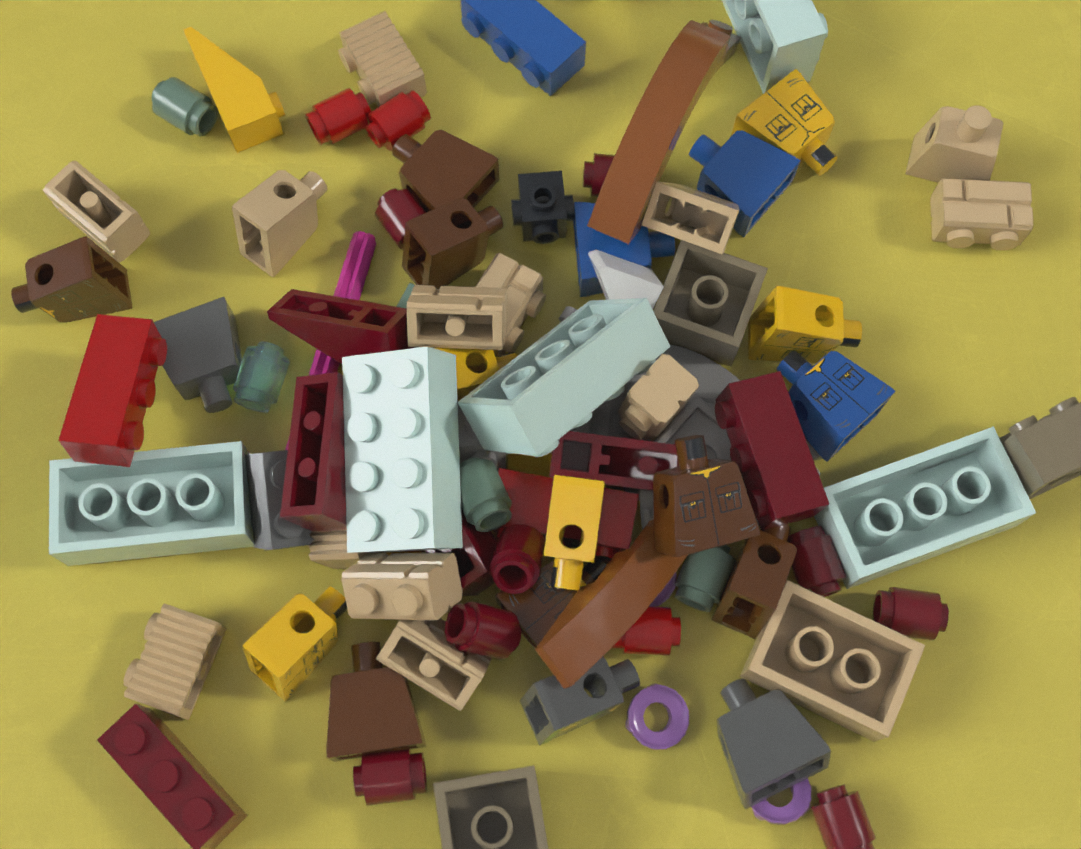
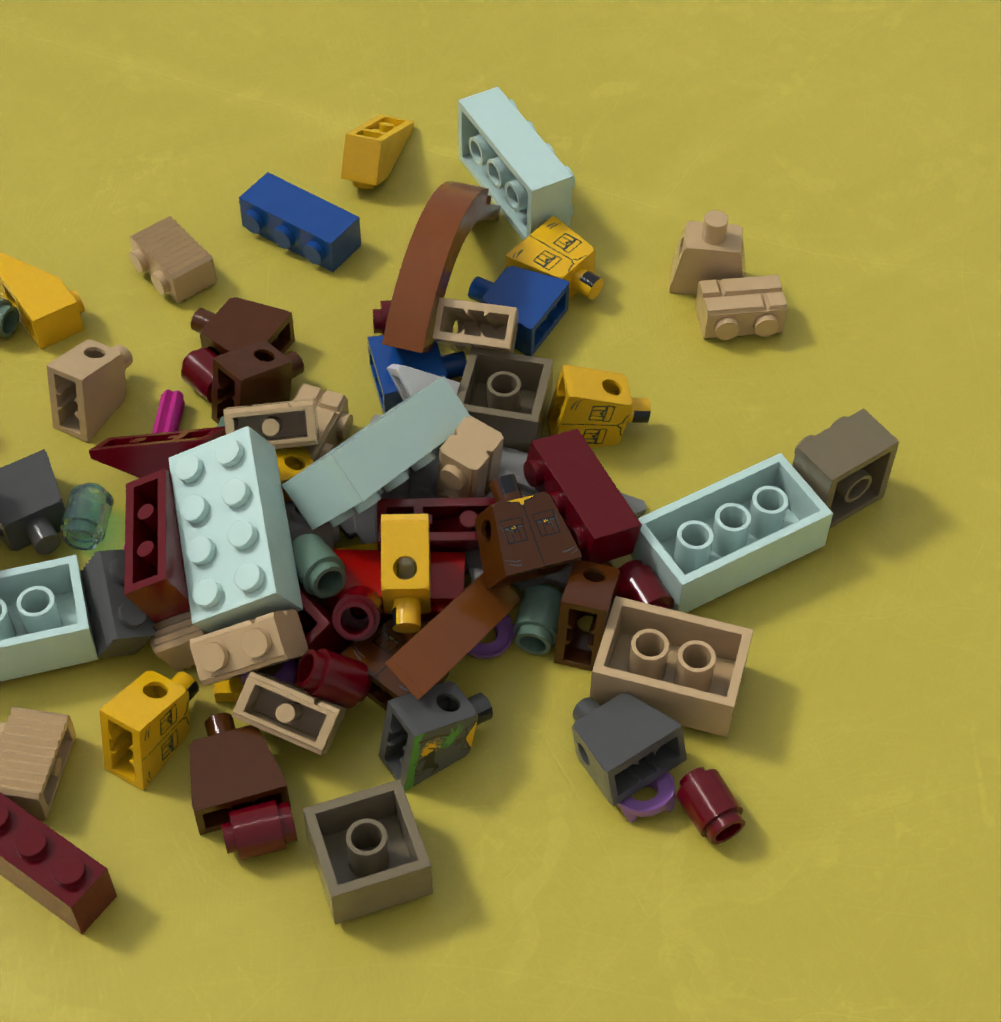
camera: 10 degrees left, 20 degrees down
(338, 116) = (136, 304): red brick -> none
(396, 118) = (190, 296): red brick -> none
(542, 207) = (338, 347): black brick -> none
(652, 633) = (491, 671): red brick -> none
(677, 717) = (521, 728): medium lavender piece -> none
(832, 399) = (638, 460): blue torso -> none
(911, 612) = (746, 614): dark red brick -> none

